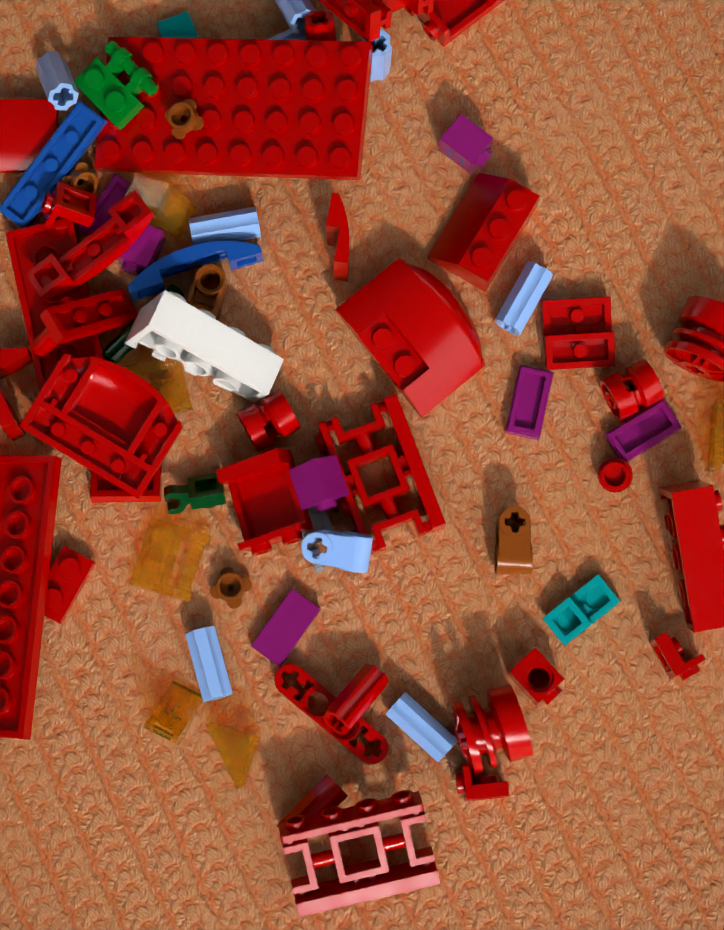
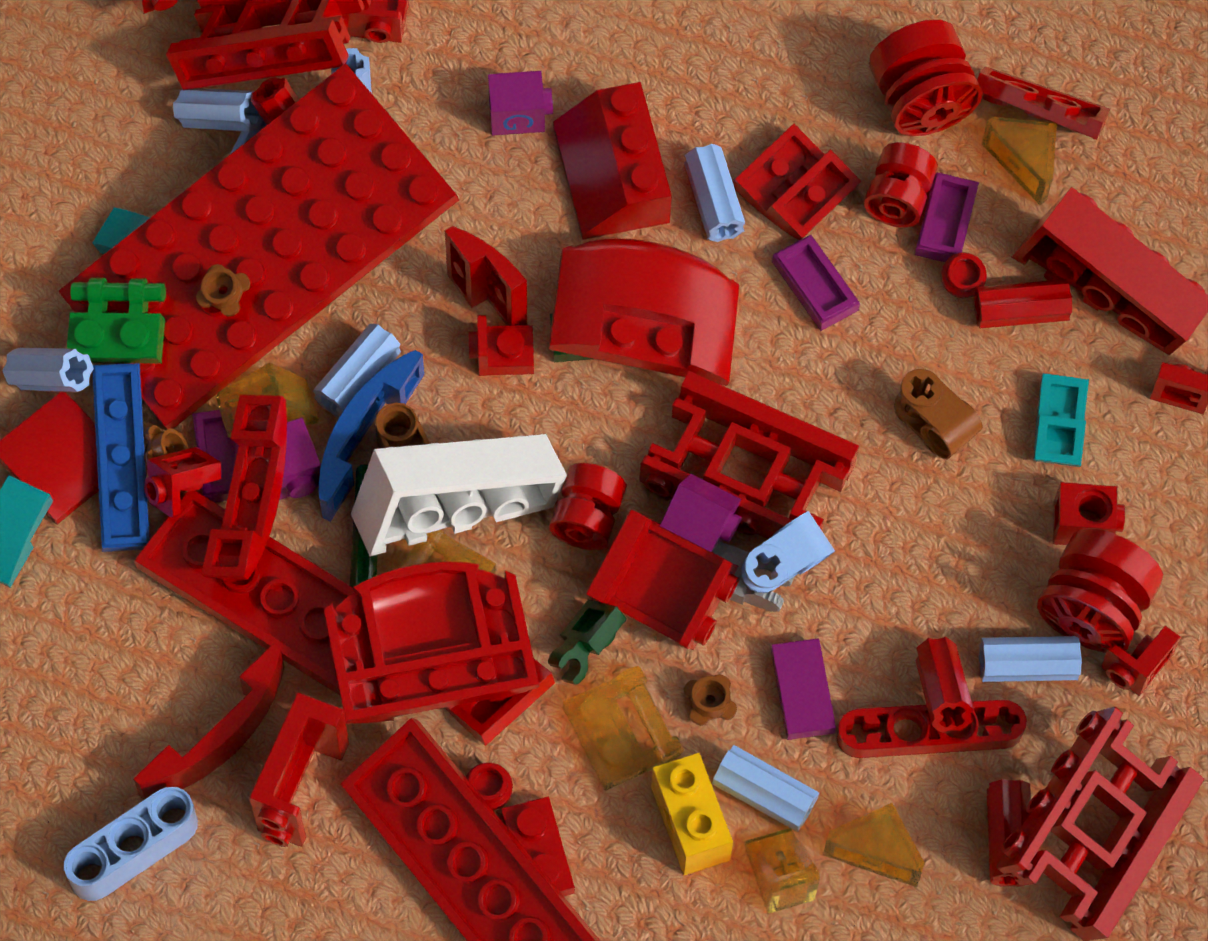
camera: 45 degrees left, 15 degrees down
(70, 526) = (491, 783): none -> red plate
(83, 319) = (303, 570): red piece -> none
(154, 641) = (691, 814): none -> yellow brick
(316, 284) = (502, 348): none -> red bracket
(630, 522) = (1022, 303): none -> red axle

